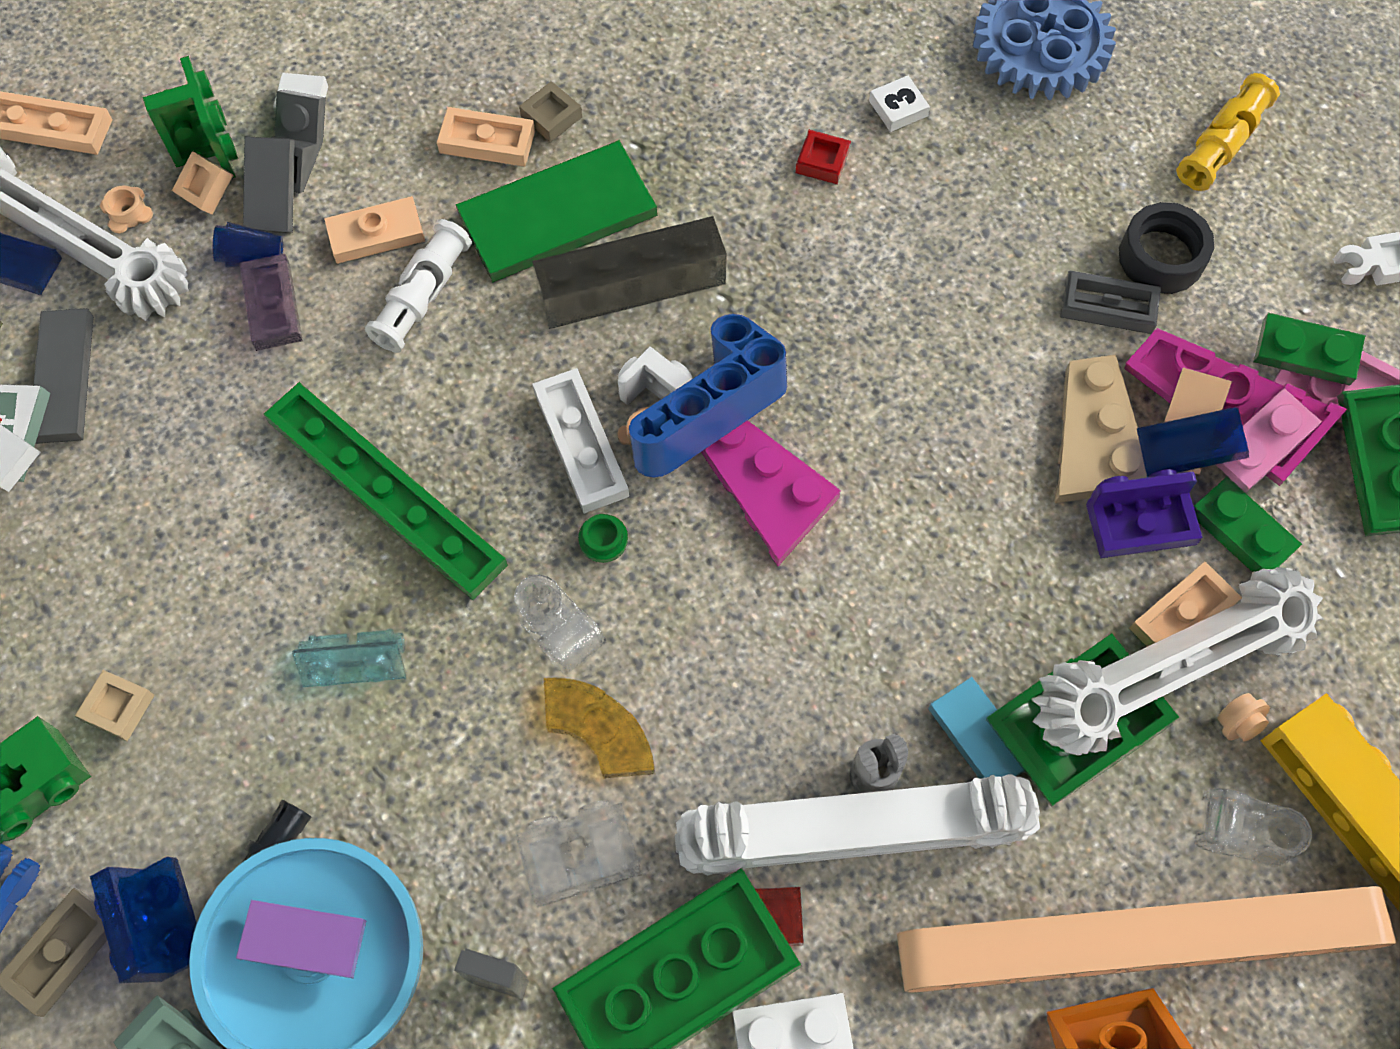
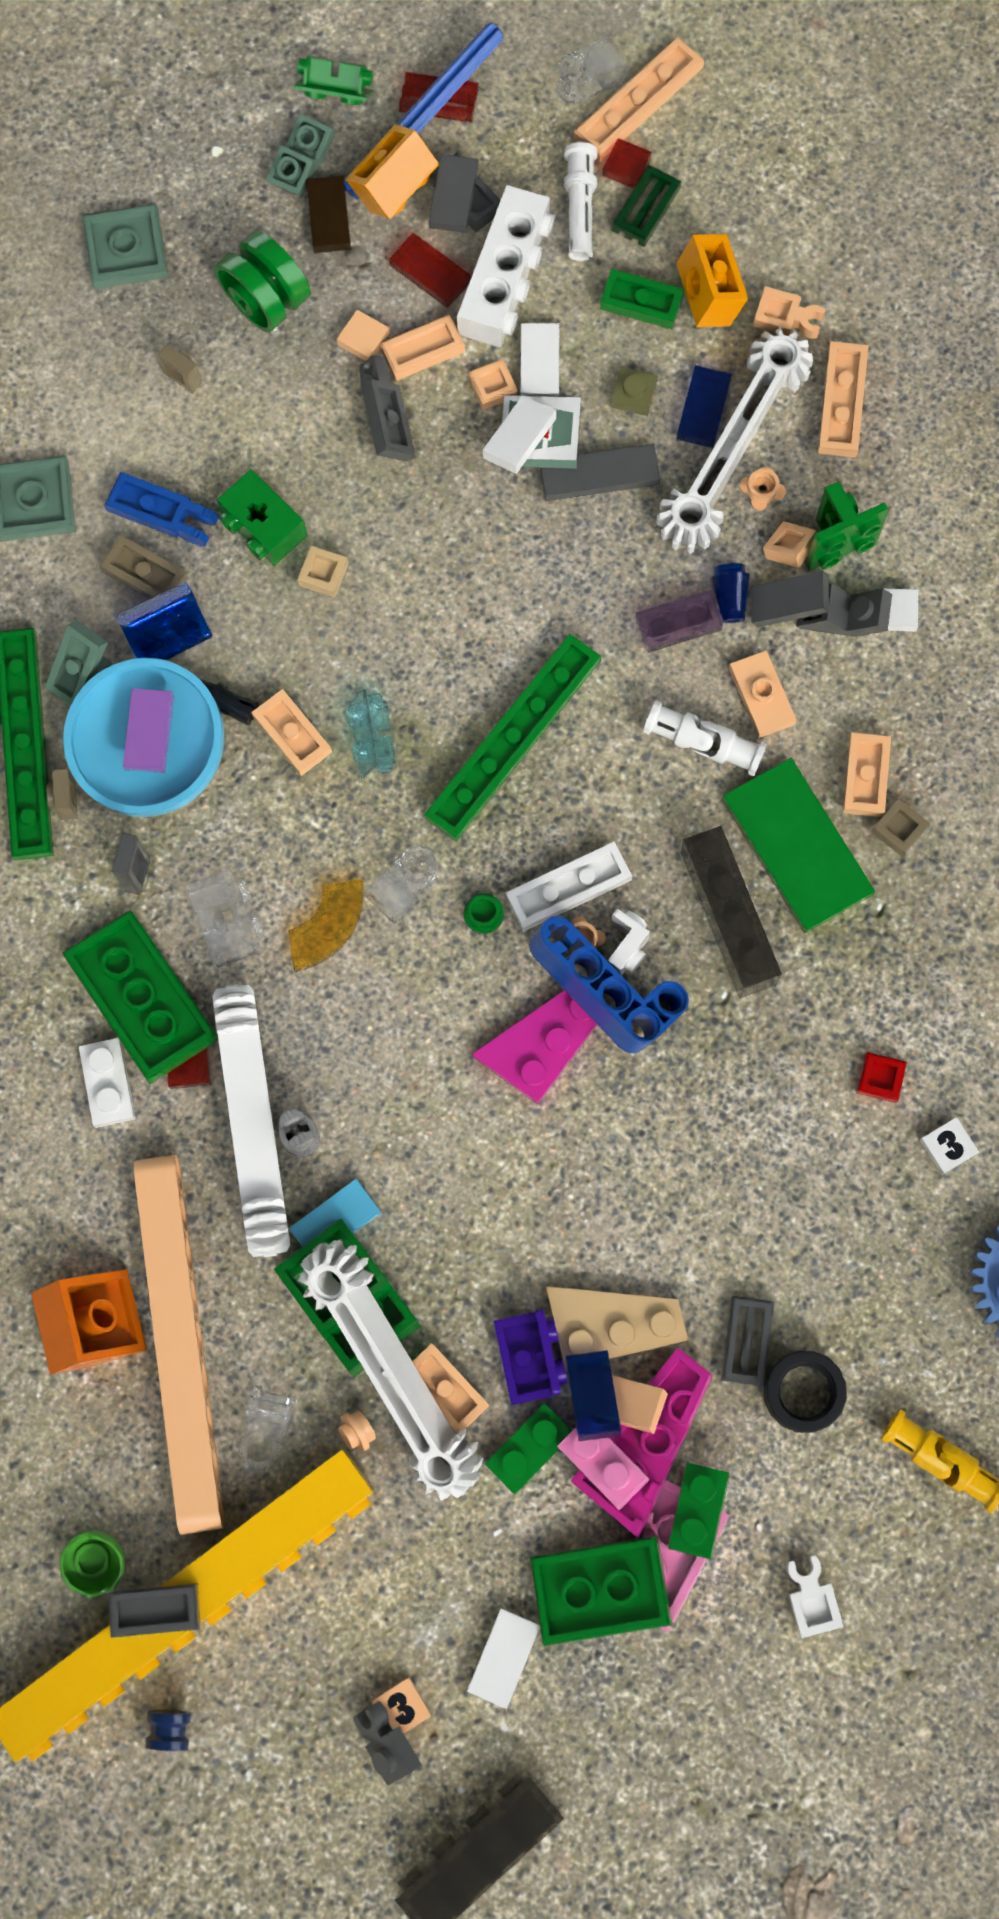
camera: 90 degrees right, 10 degrees up
(331, 757) = (291, 732): none -> light nougat plate

